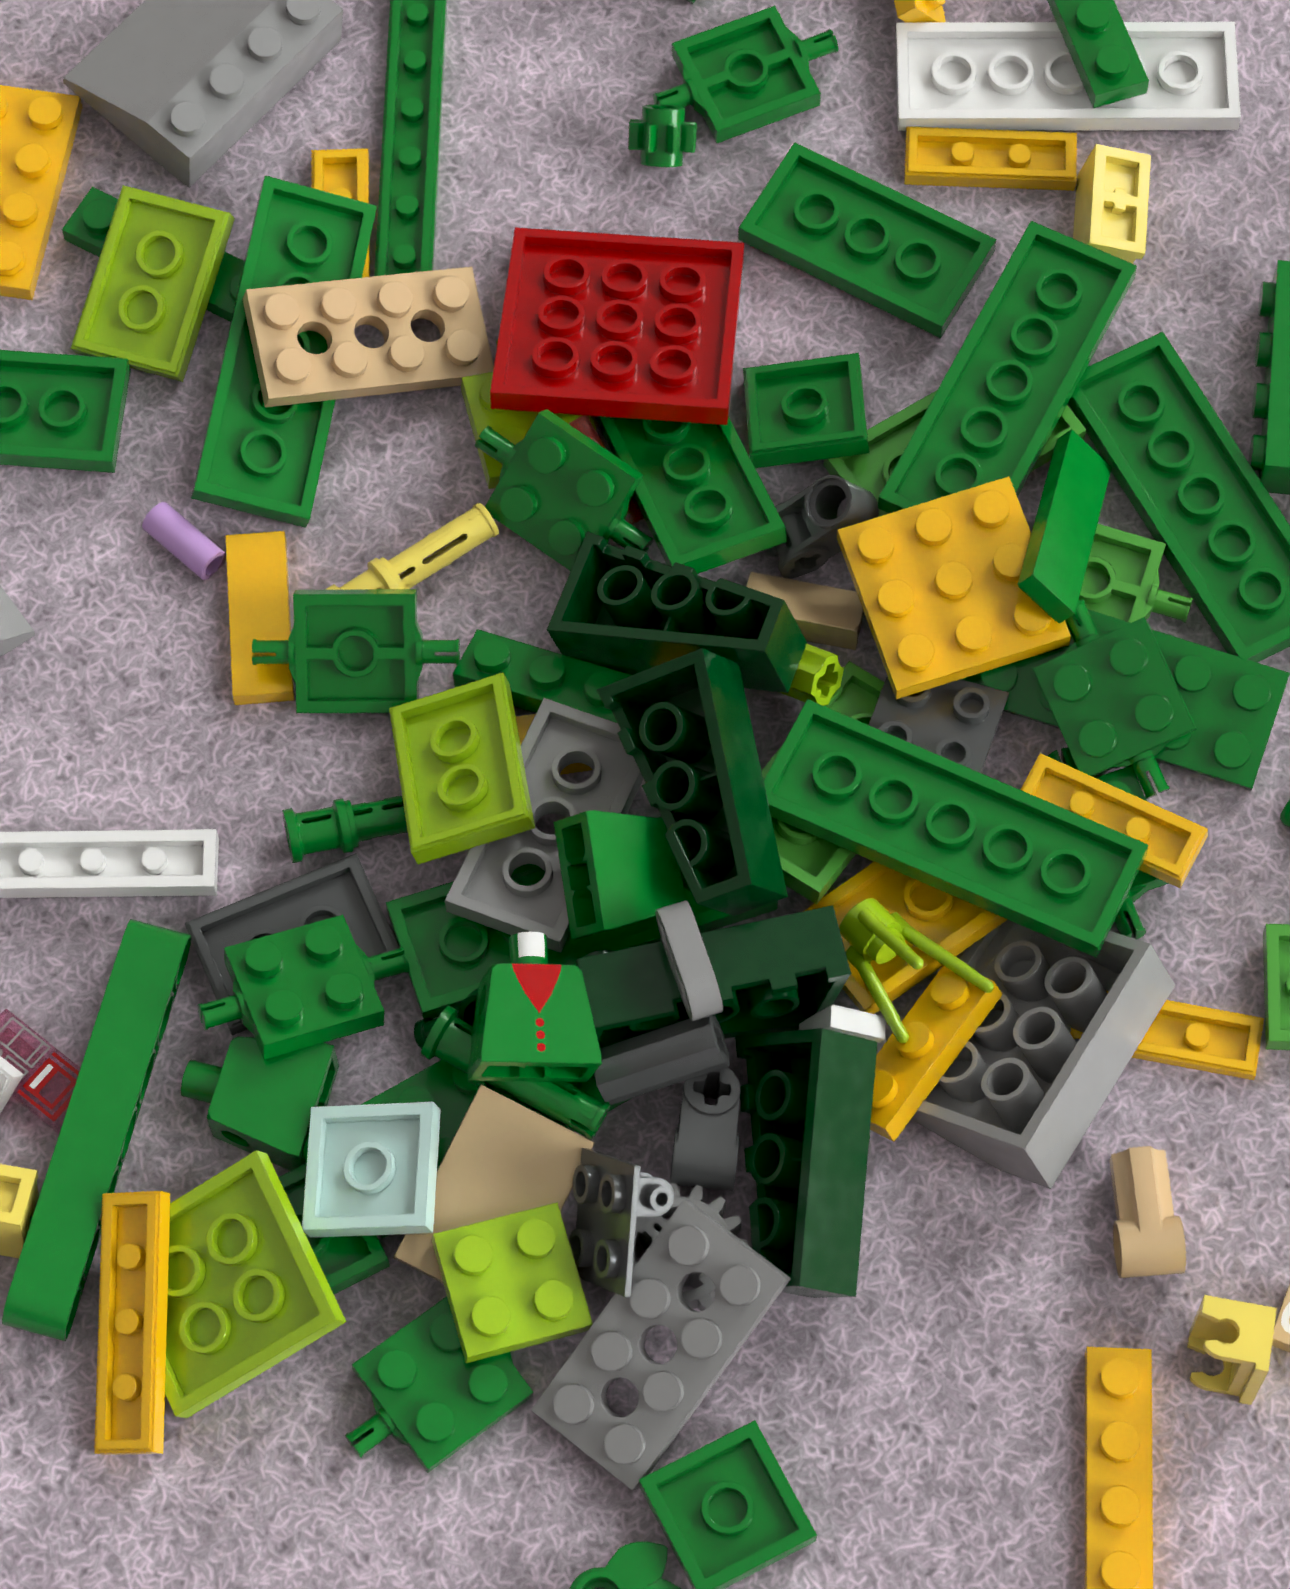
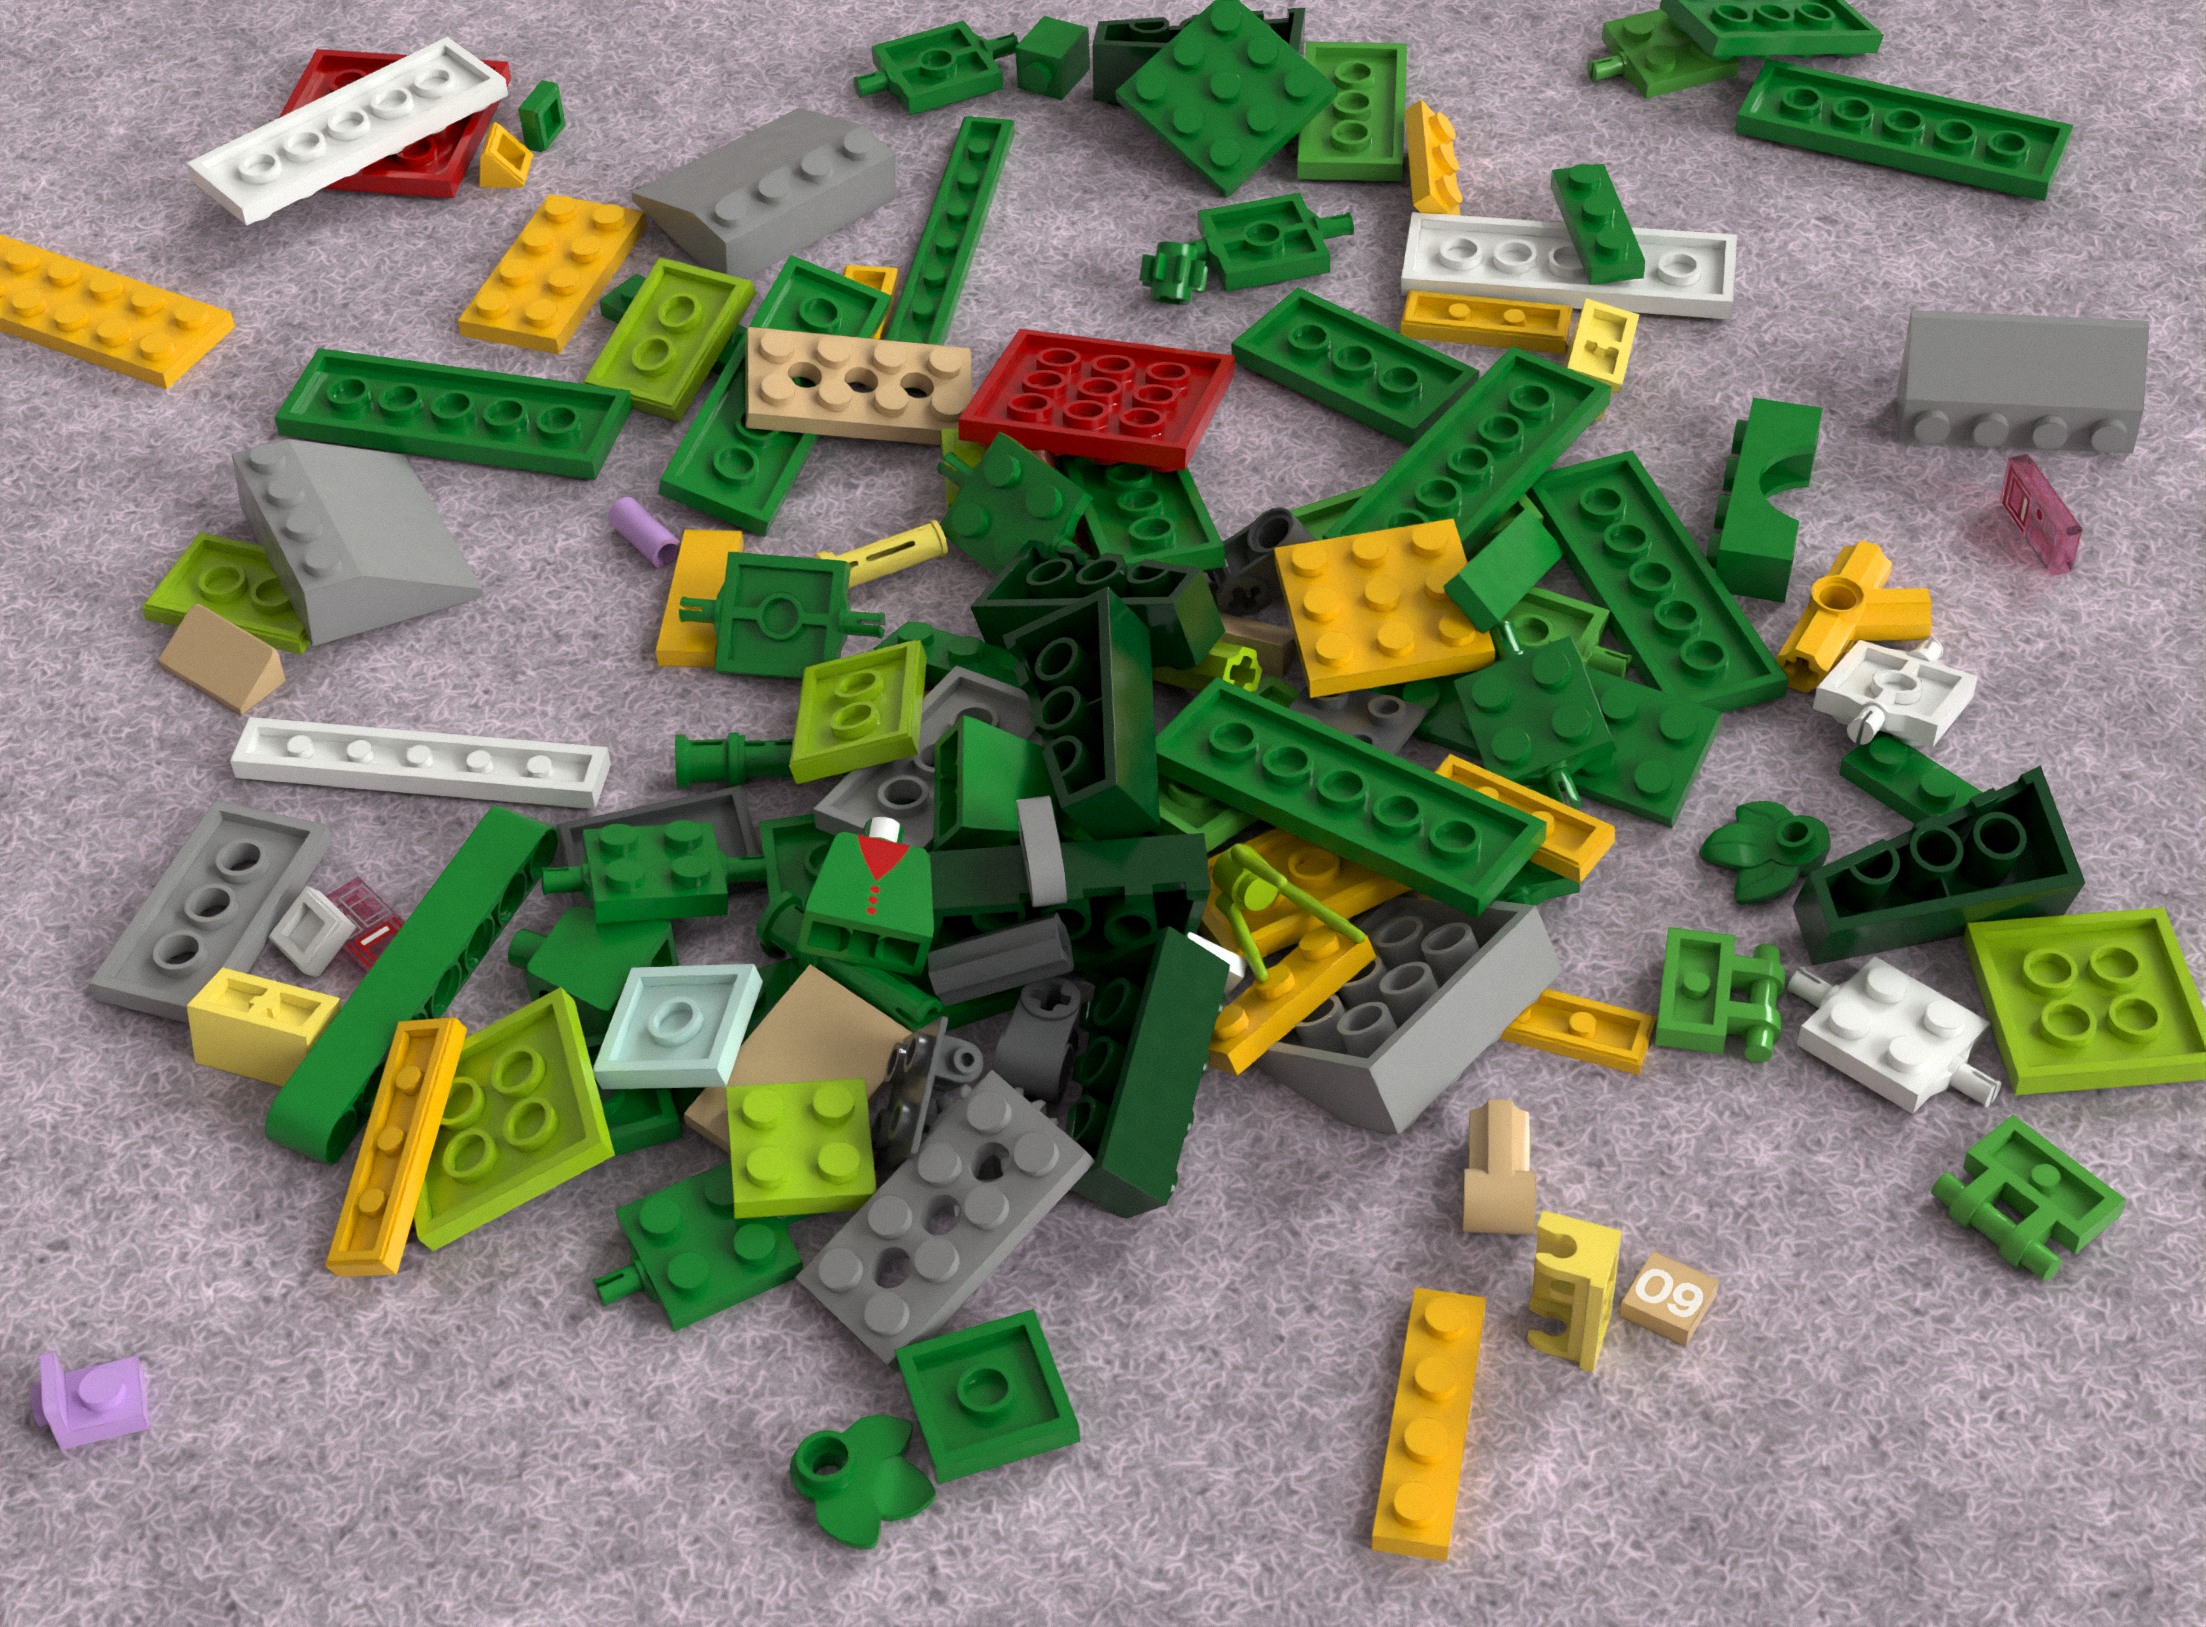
camera: 10 degrees right, 20 degrees down
(805, 410) = (1267, 477): green tile -> none

